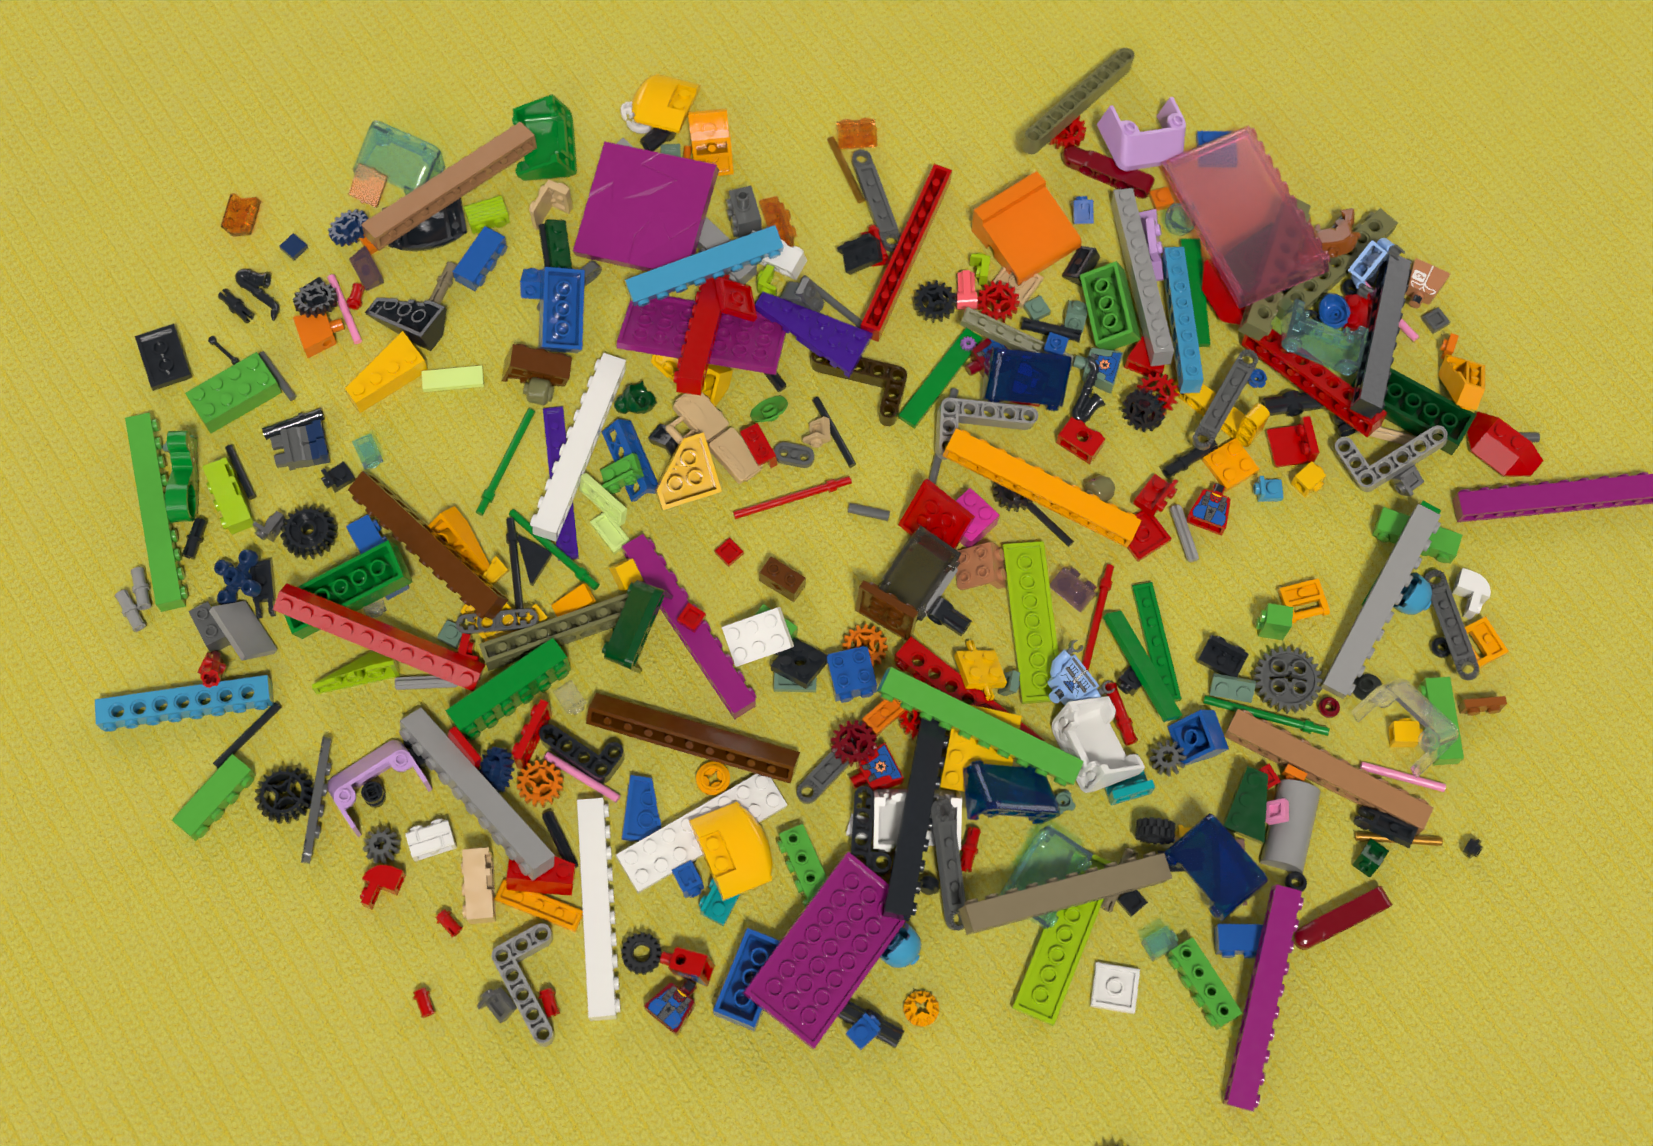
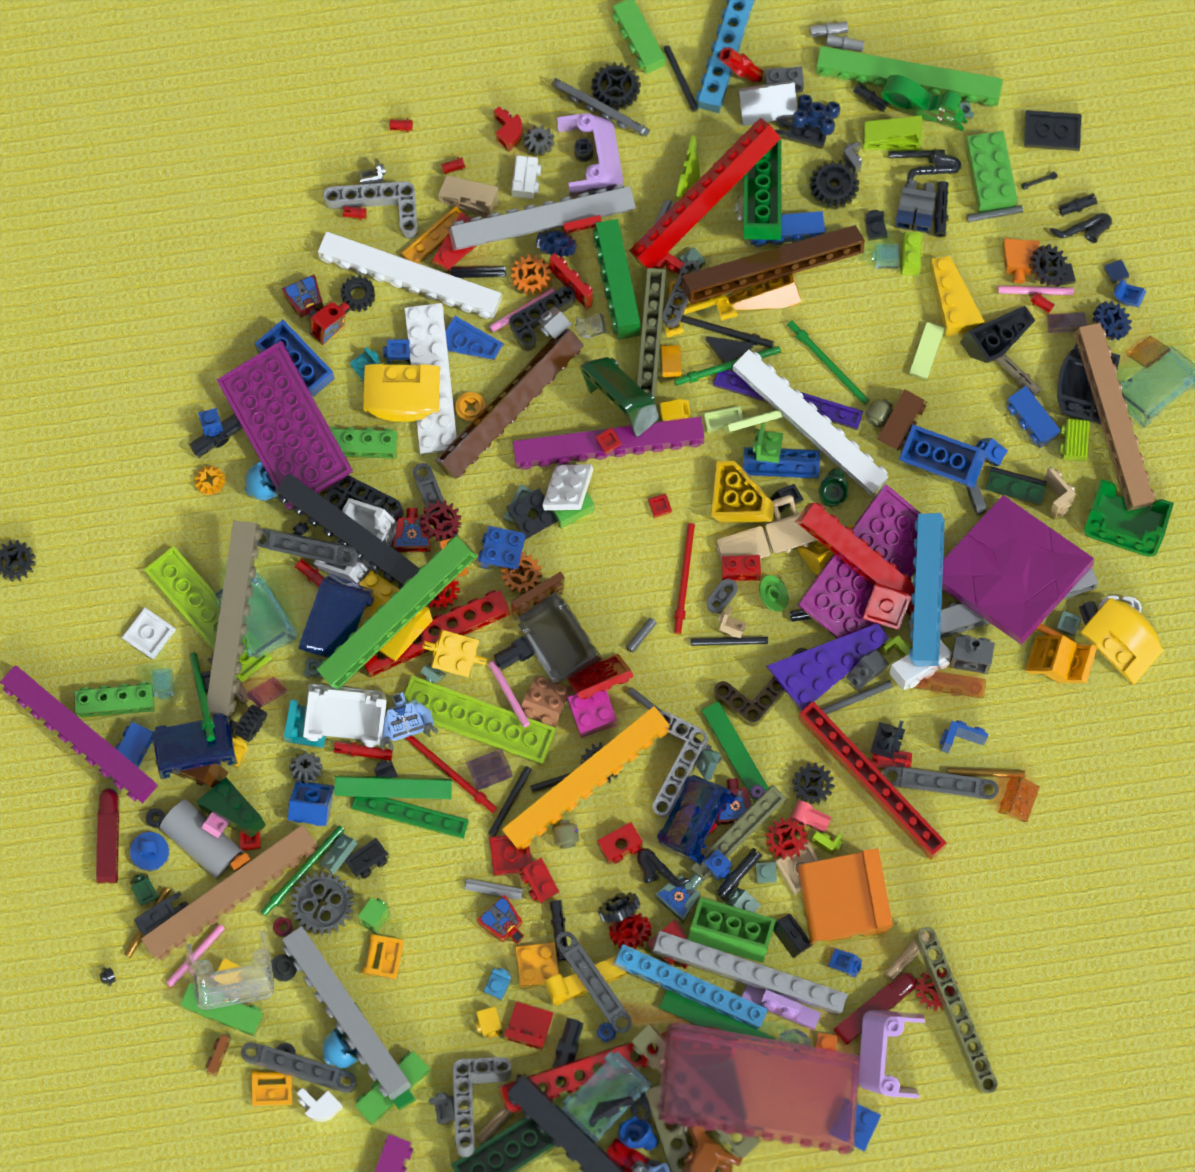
camera: 120 degrees right, 5 degrees up
(240, 215) = (1165, 238): clear orange bracket -> none
(241, 438) = (944, 165): none -> black piece
(314, 224) = (1129, 294): none -> blue bracket
(354, 428) = (911, 253): none -> lime brick
(587, 730) = (553, 323): none -> light grey brick
(782, 579) = (612, 533): reddish brown brick -> none
(829, 201) = (962, 731): none -> blue bracket
(969, 390) = (708, 763): none -> sand green bracket
(992, 602) = (509, 694): none -> bright pink bar
(1047, 165) = (905, 958): none -> tan axle
(1089, 557) = (510, 800): none -> black bar
(1115, 832) = (266, 692): none -> clear pink tile
(1190, 858) = (207, 722): none -> green bar
(1330, 872) = (149, 851): none -> blue tile
(1333, 334) = (609, 1109): none -> black tile

